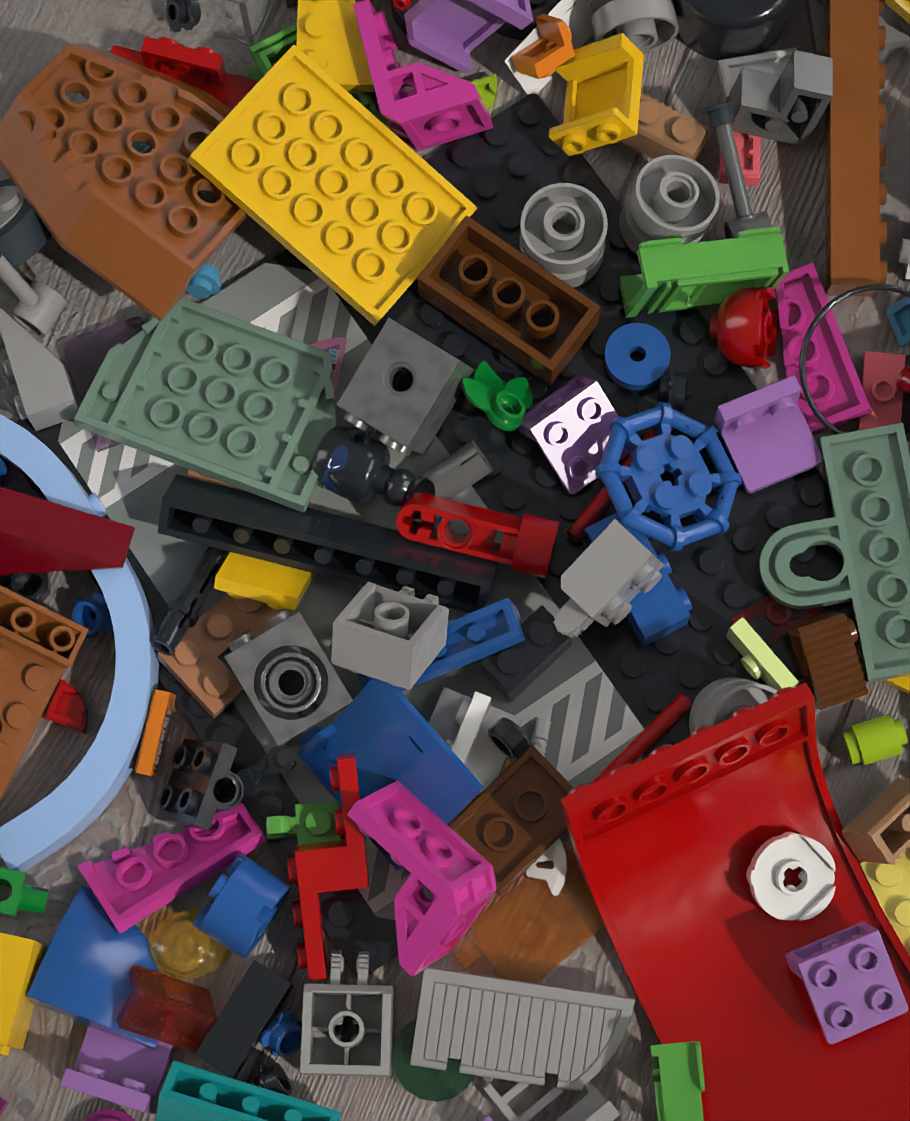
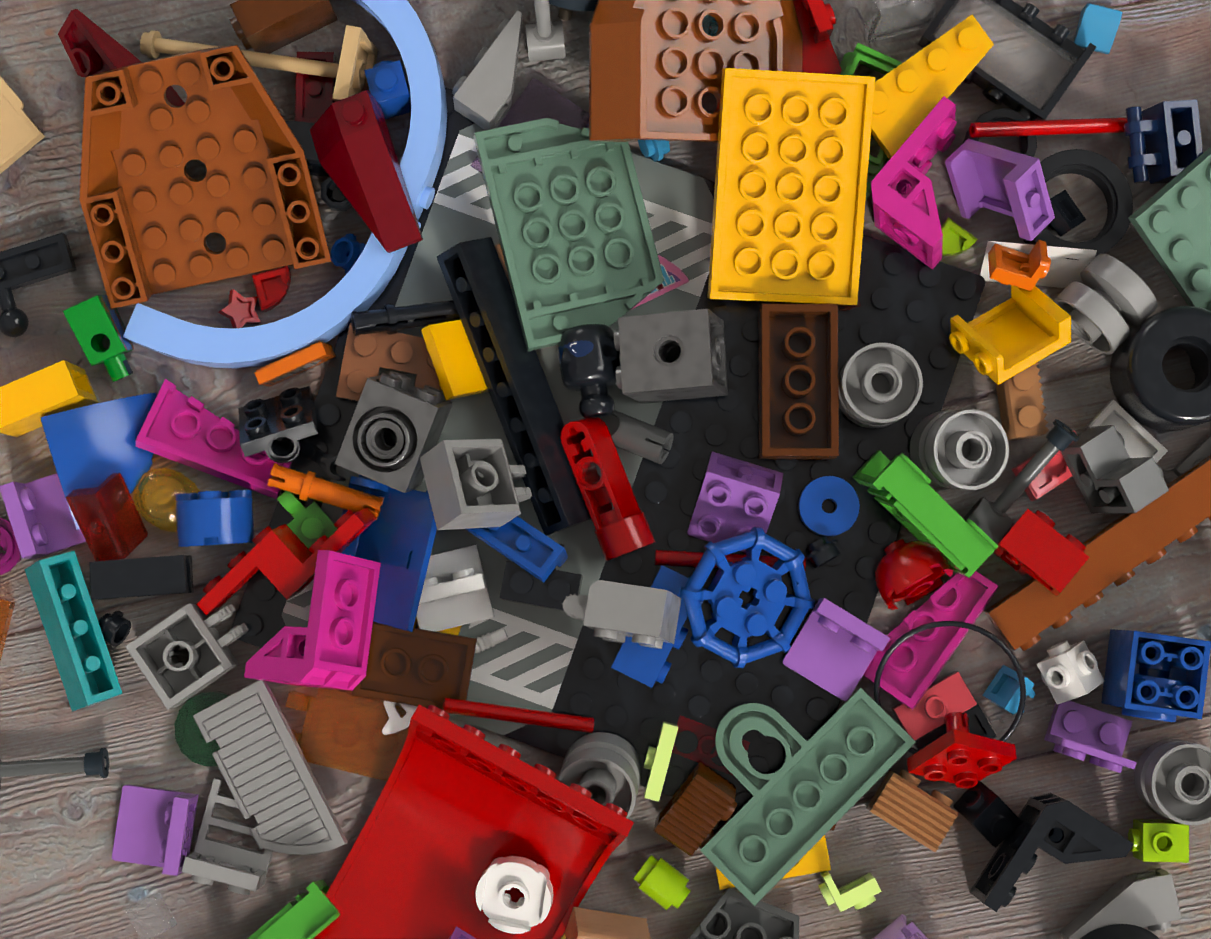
camera: 55 degrees right, 10 degrees up
(66, 749) = (240, 310): none -> red piece
(282, 1035) = (149, 611): blue plate -> none
(291, 785) = (323, 490): none -> orange pin
(500, 401) = (717, 423): green plate -> none
(508, 738) = (469, 620): black tile -> none
(810, 200) = (1042, 551): none -> red brick

